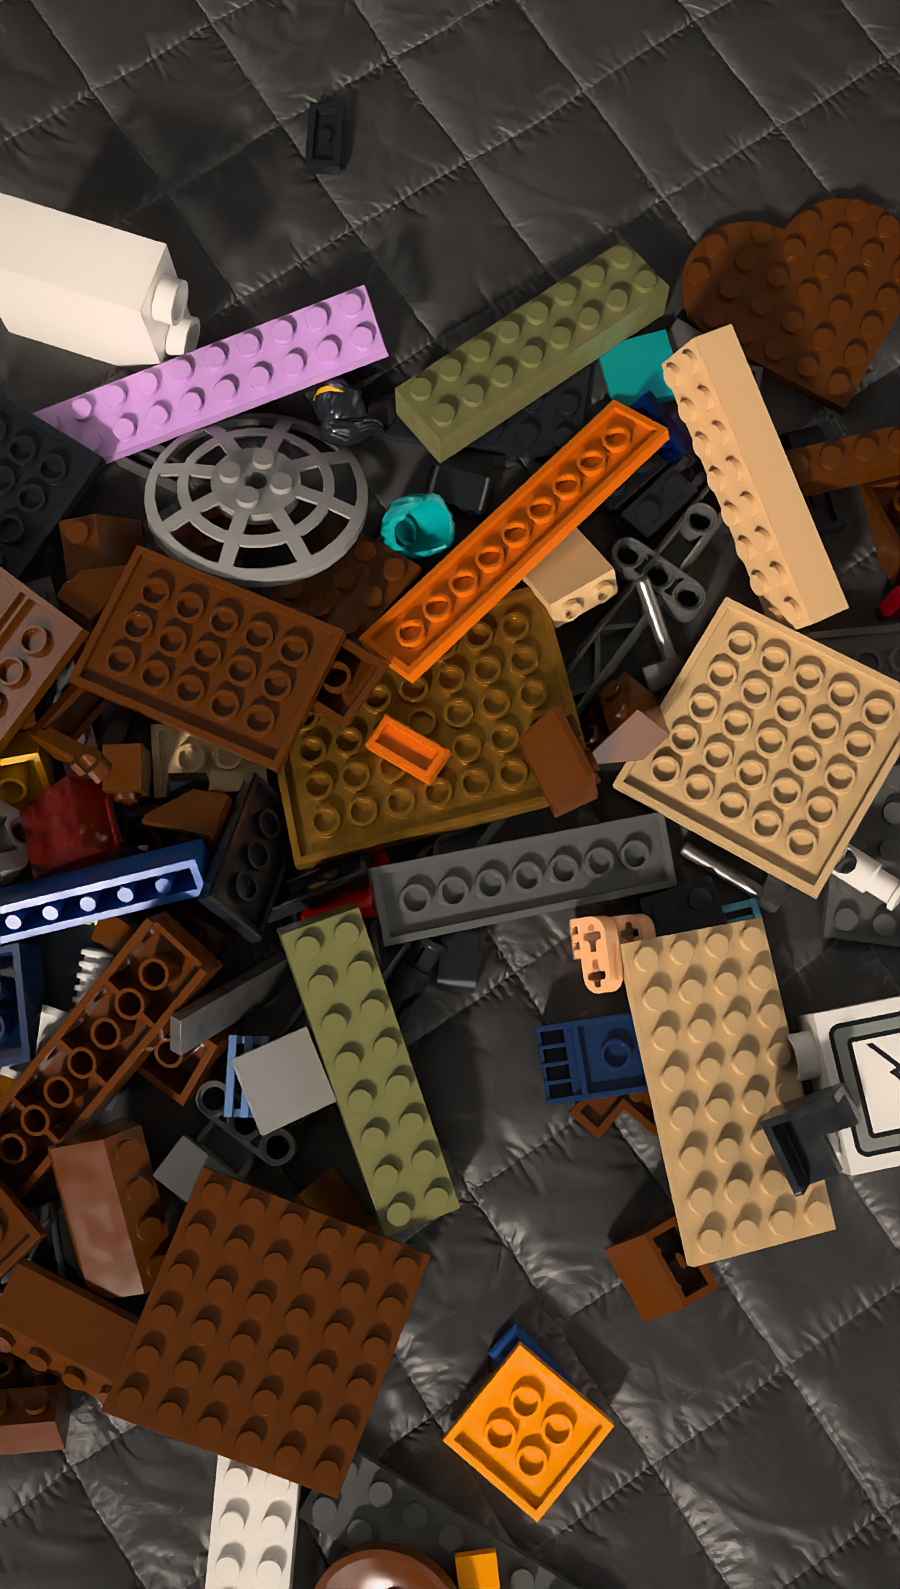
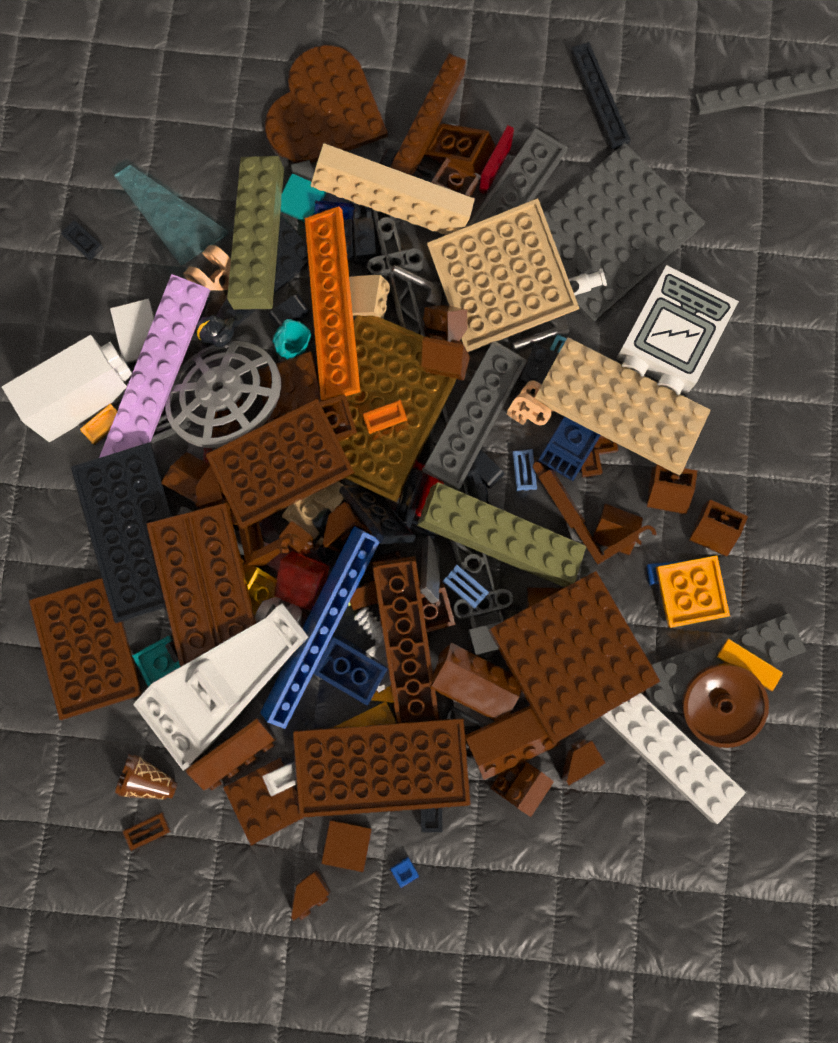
camera: 50 degrees left, 0 degrees up
(82, 375) = (100, 425): none -> light orange tile
(121, 1470) = (581, 761): none -> reddish brown slope
(257, 298) = (132, 327): none -> white tile
(283, 1080) = (480, 572): light grey tile -> none
(399, 337) = (216, 257): none -> light nougat piece
(458, 237) = (177, 224): none -> clear light blue wing
(485, 1040) = (525, 487): none -> medium blue tile
(492, 1156) = (576, 520): none -> reddish brown hinge
(533, 1233) = (616, 525): none -> reddish brown slope
(660, 1392) = (718, 527): none -> reddish brown slope
(800, 1132) = (663, 388): black panel -> none
(859, 558) = (456, 178): none -> reddish brown slope

